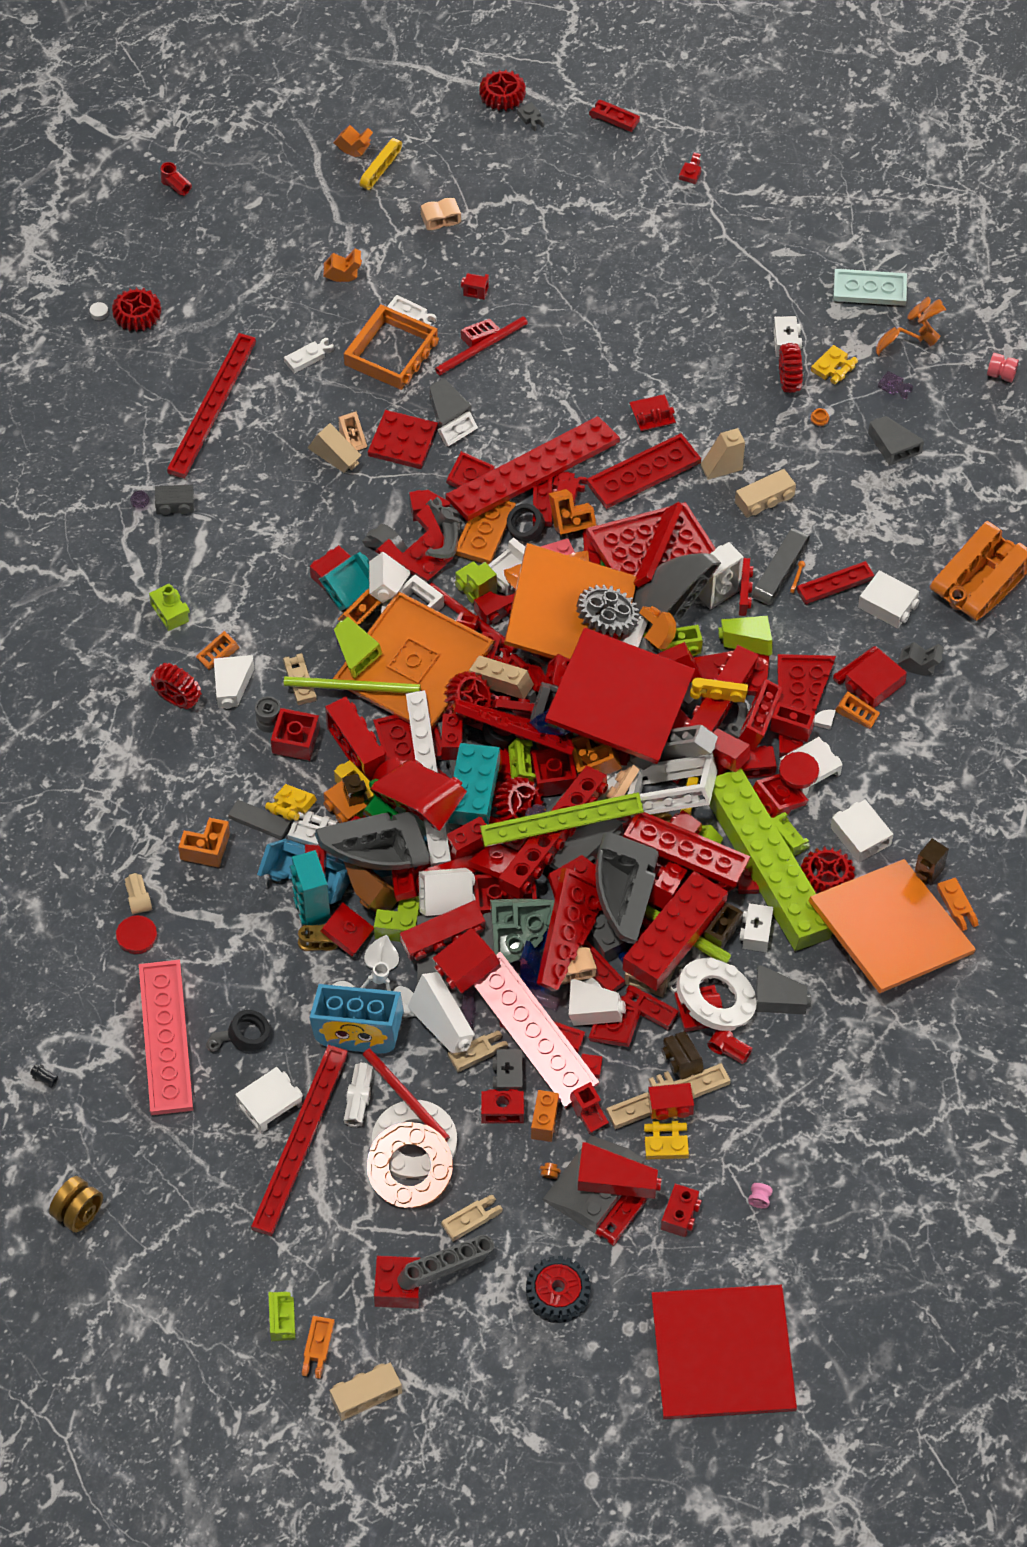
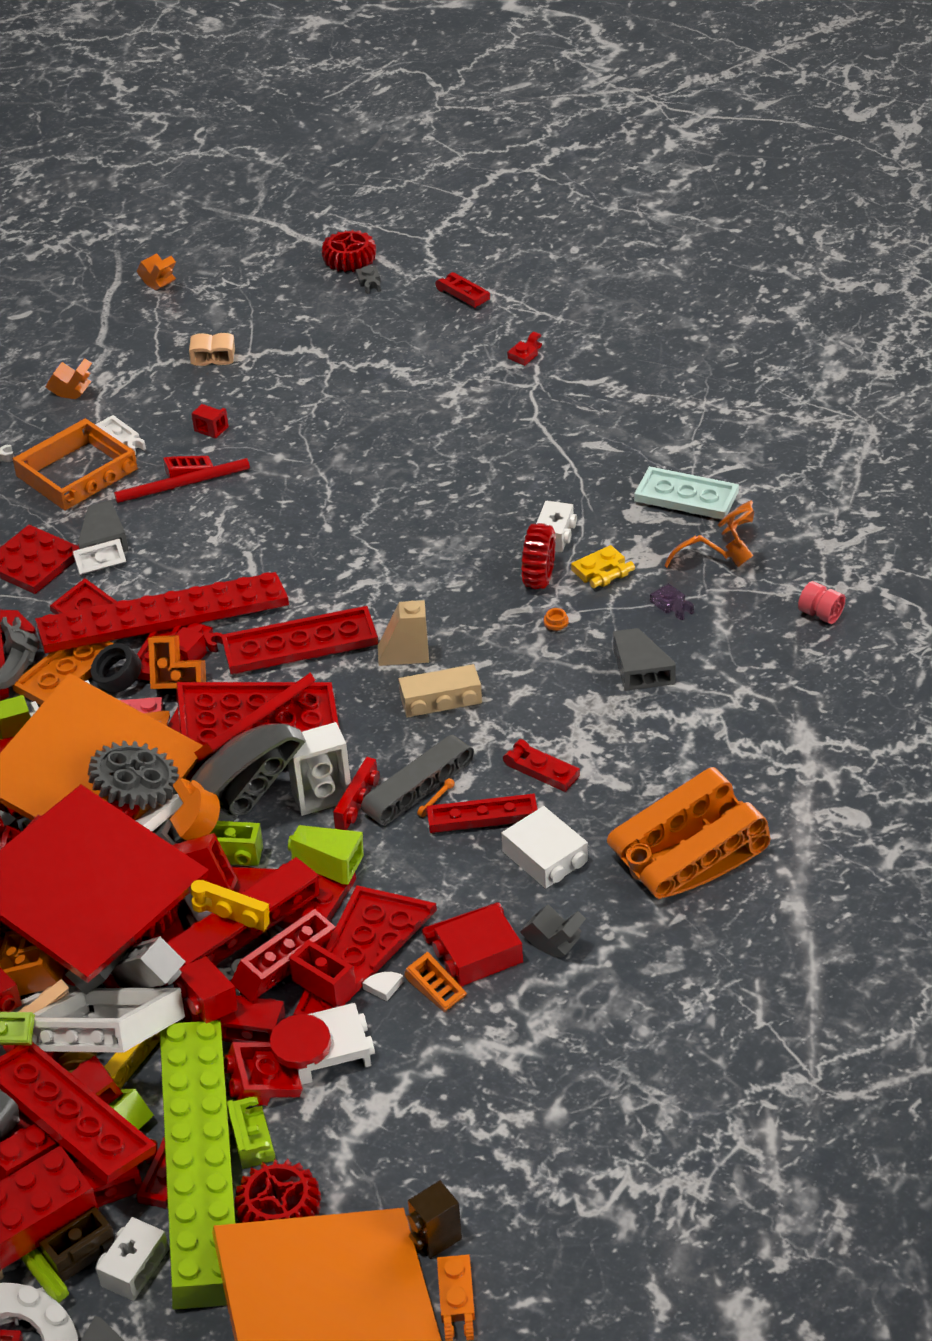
camera: 20 degrees right, 15 degrees down
(380, 164) = (195, 285): yellow beam -> none
(652, 412) = (346, 580): red hinge -> none
(858, 537) = (541, 766): none -> red plate
(861, 830) = (358, 1151): white brick -> none

